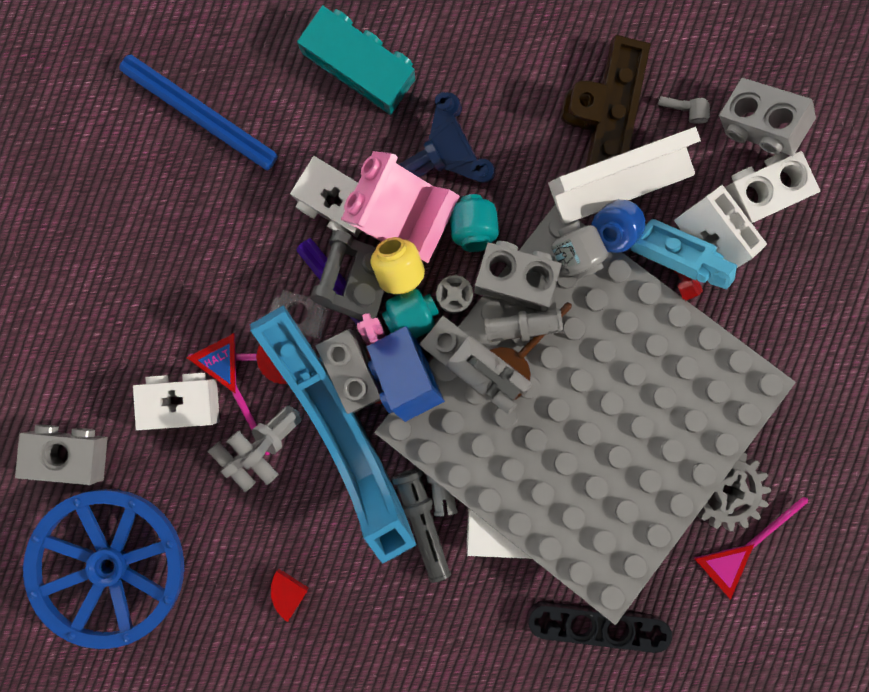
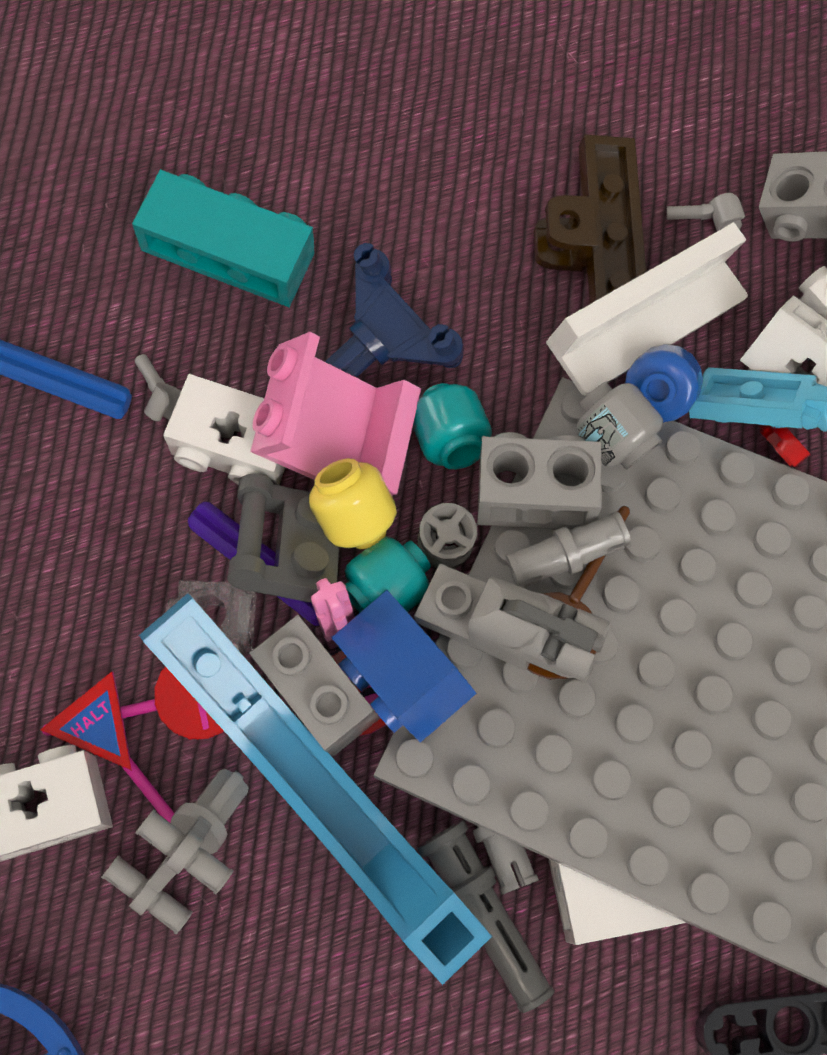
camera: 25 degrees left, 15 degrees down
(297, 162) = (163, 395): none -> light grey hand

